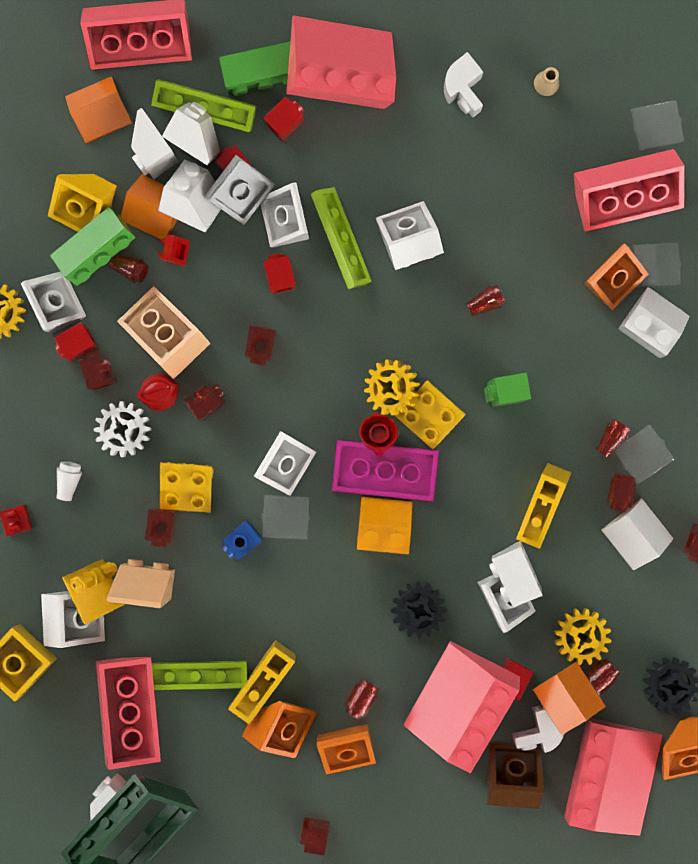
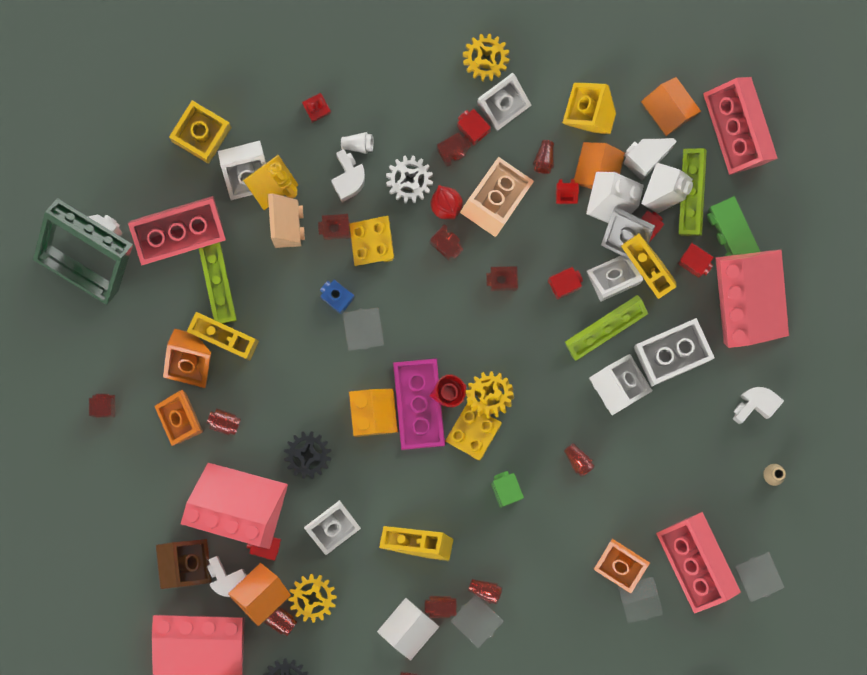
camera: 70 degrees right, 5 degrees down
(93, 246) = (555, 124): bright green brick -> none
(111, 496) = (350, 182): none -> white brick
(281, 172) = (649, 265): none -> yellow slope
(285, 463) = (408, 318): white slope -> none
(386, 166) = (673, 352): none -> white brick
(516, 575) = (354, 529): white slope -> none
(654, 323) = (591, 607): white slope -> none

